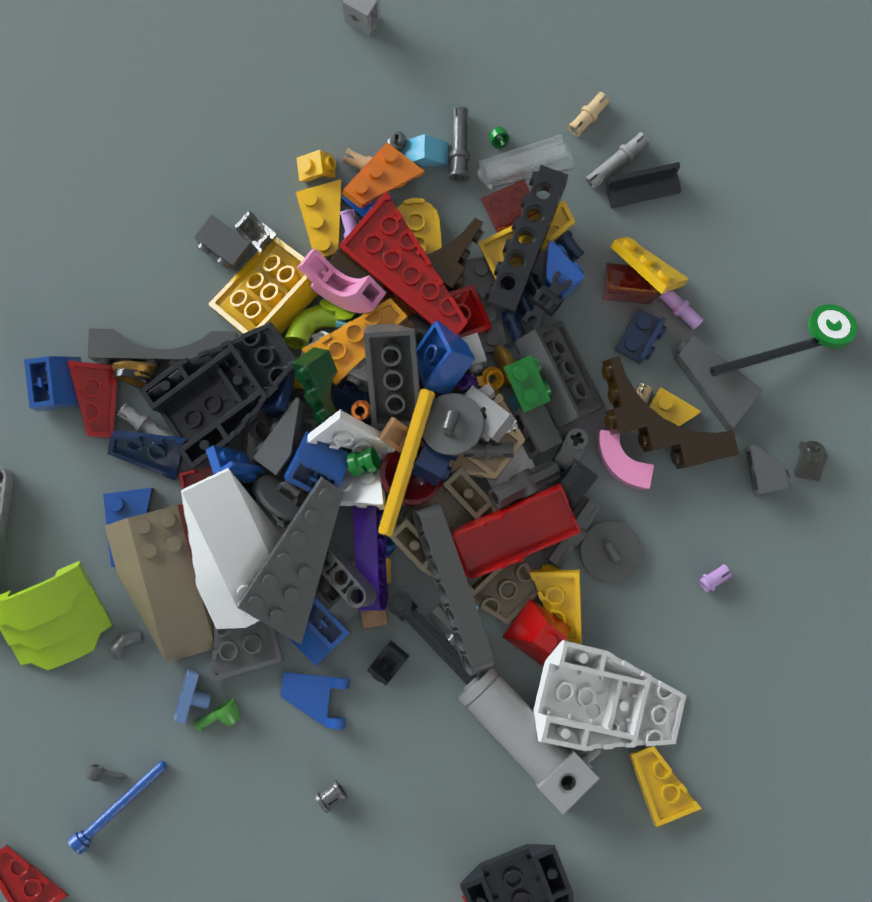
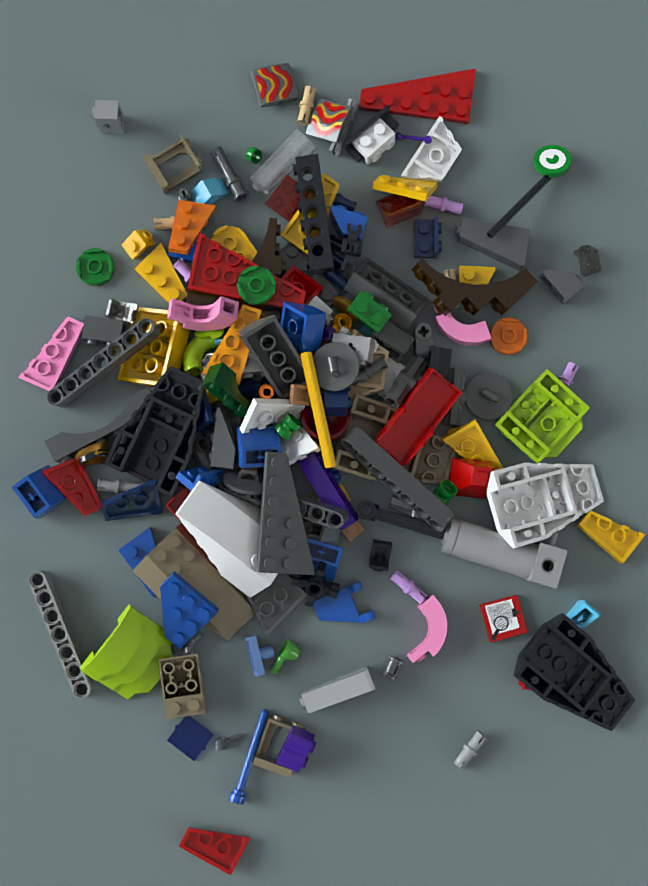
camera: 30 degrees left, 0 degrees up
(65, 746) = (190, 737): none -> clear blue piece
(87, 686) = (182, 686): none -> dark tan slope
(134, 601) = (183, 610): none -> blue plate
(138, 830) = (260, 758): none -> dark tan panel
(147, 246) = (54, 358): none -> bright pink wing
(171, 827) = (296, 748): none -> dark purple brick
(212, 282) = (112, 362): none -> dark grey beam
(254, 166) = (95, 267): none -> green tile
(255, 787) = (337, 690): none -> light grey slope
(297, 656) = (316, 584): none -> black pin
(400, 716) = (408, 586): none -> lavender pin
(405, 782) = (437, 629): none -> bright pink arch
(411, 84) = (183, 146): none -> dark tan panel
(416, 285) = (256, 285): none -> green tile
(486, 812) = (503, 618): none -> tile
(500, 632) = (445, 491): none -> green wheel
(565, 71) = (274, 85): none -> slope
(577, 858) = (583, 614): none -> medium azure slope
(604, 144) = (329, 120): none -> slope
(643, 195) = (375, 141): none -> white bracket
(658, 612) = (543, 418): none -> lime slope
(671, 496) = (508, 336): none -> orange tile
(701, 247) = (434, 159): none -> white wing
(703, 225) = (427, 139): none -> dark purple hinge
(738, 182) = (426, 97): none -> red wing

